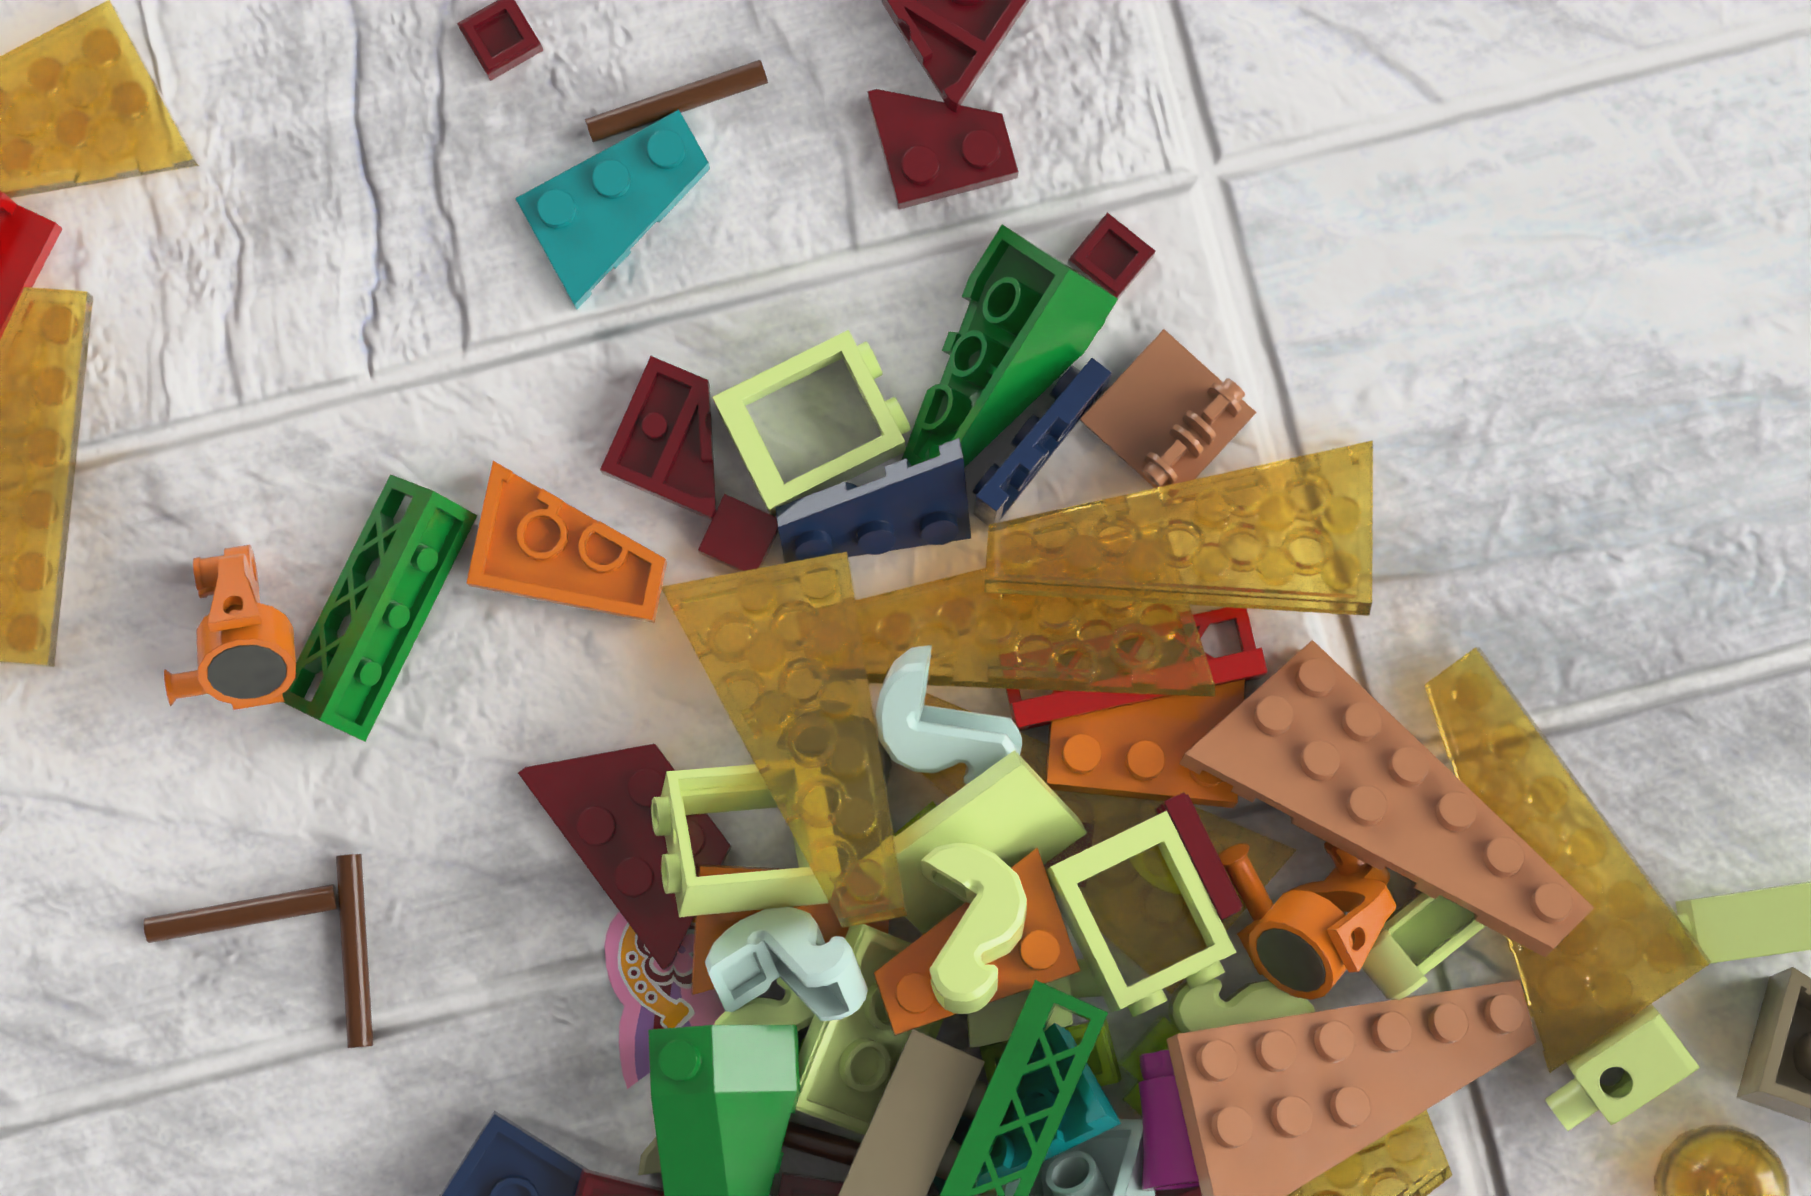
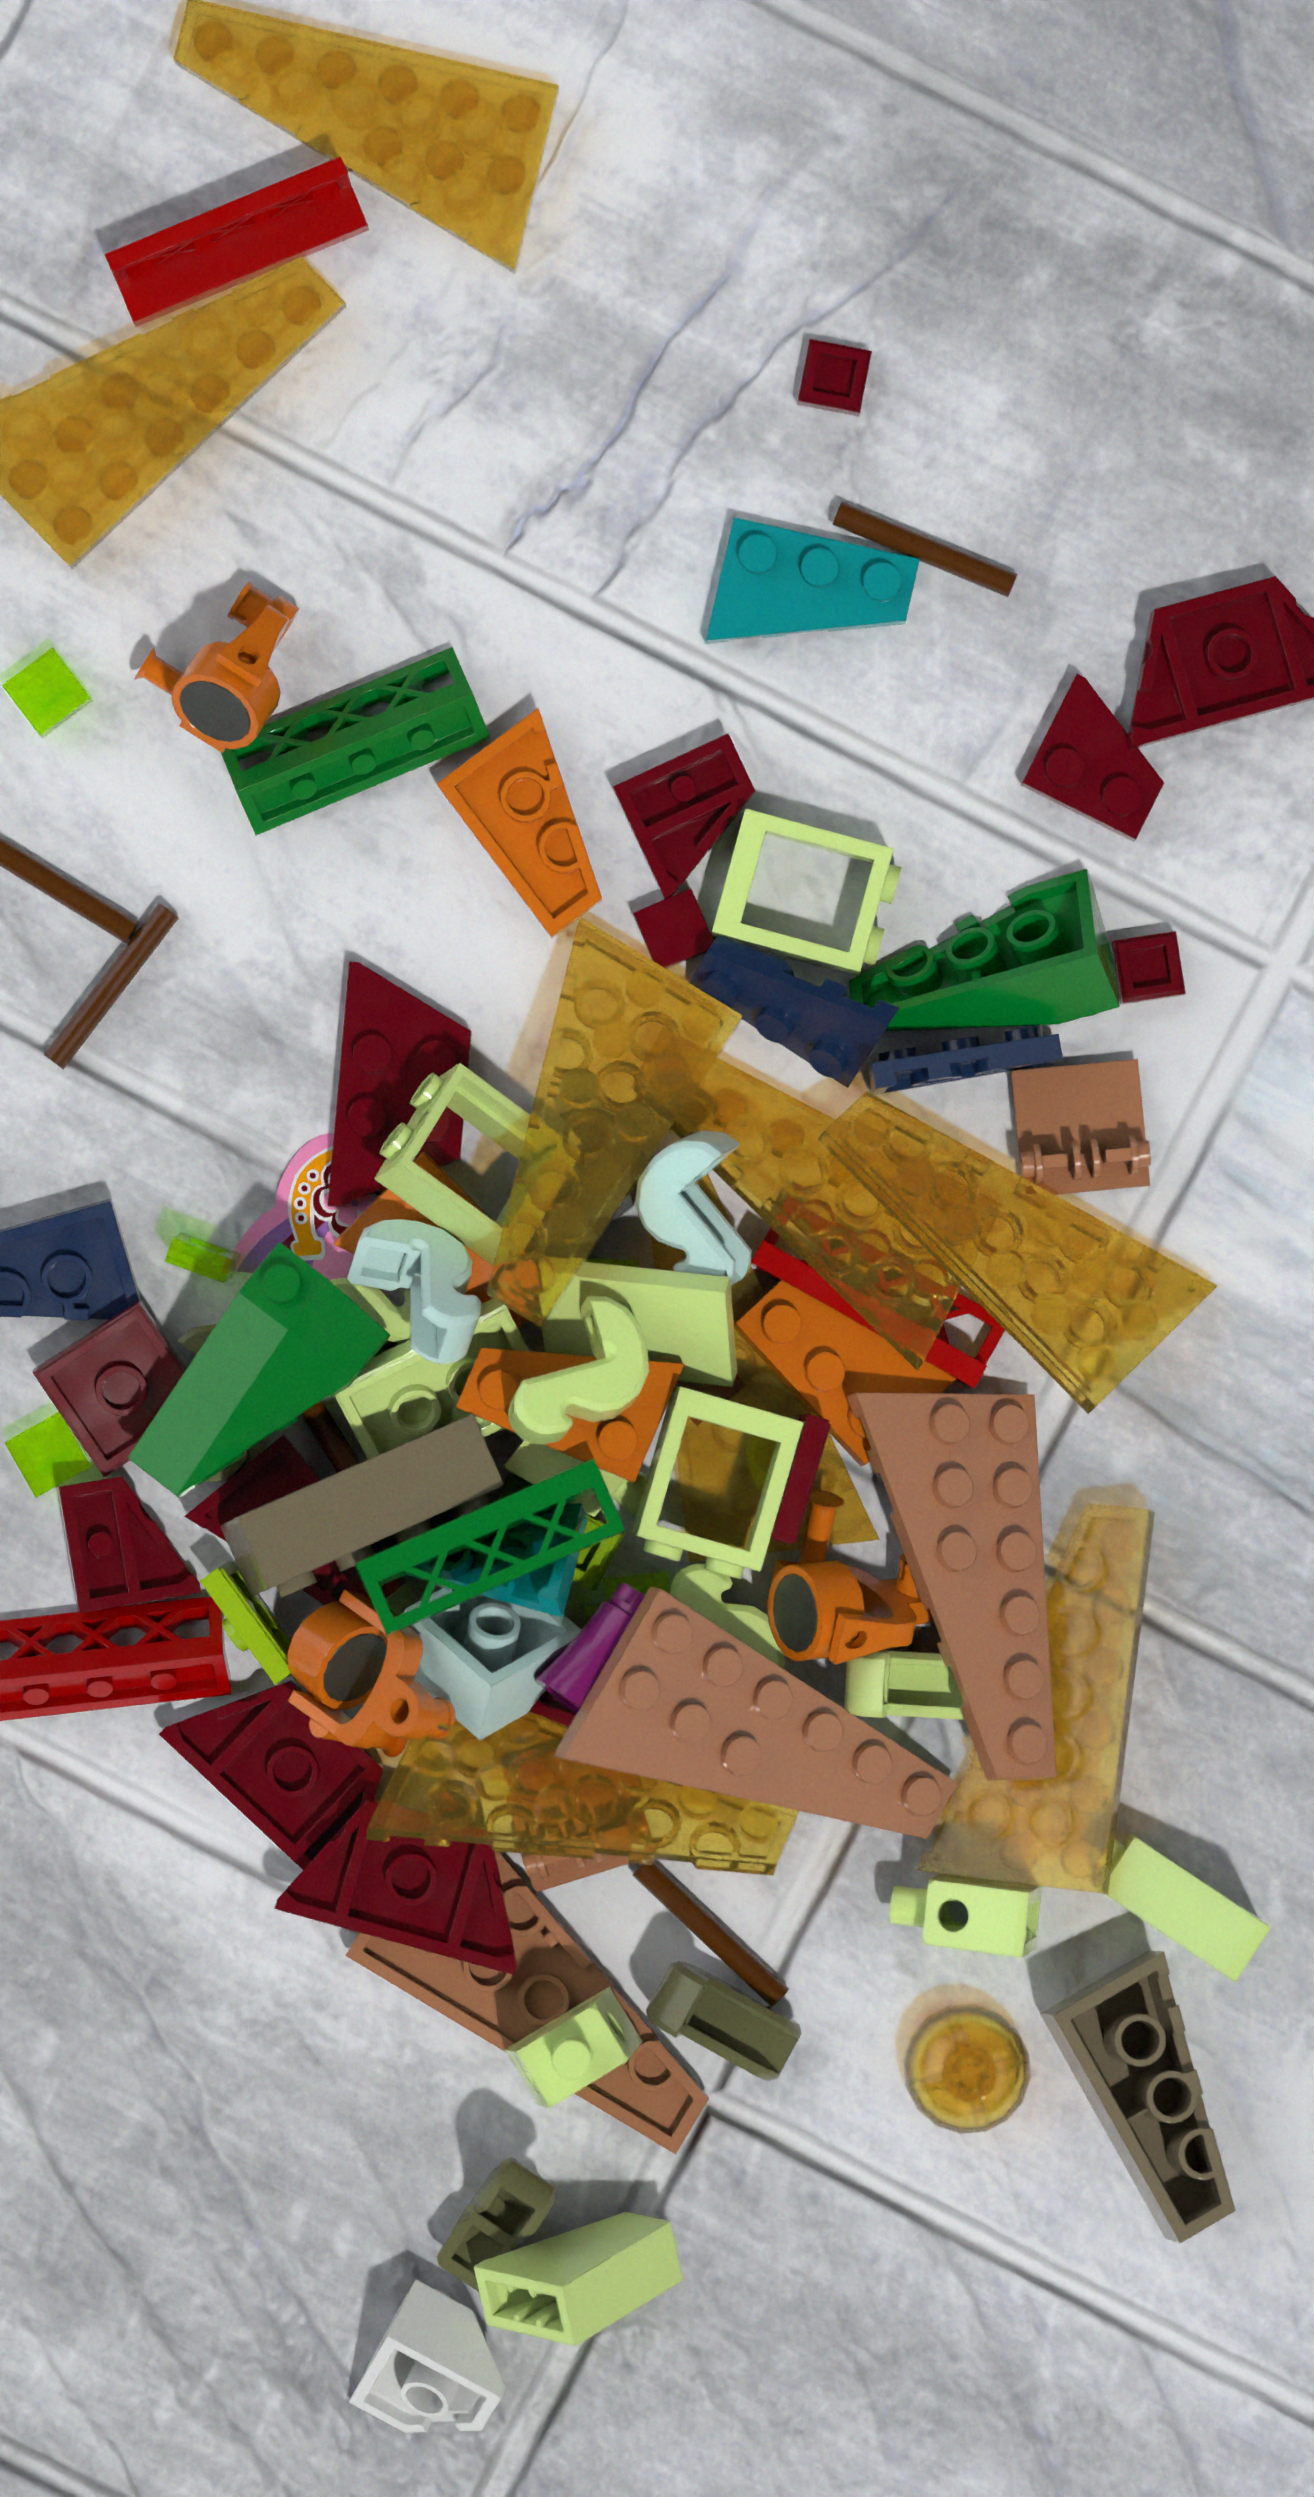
camera: 40 degrees right, 5 degrees up
(114, 774) = (47, 693): none -> clear neon green tile
(602, 1093) = (202, 1257): none -> clear neon green tile

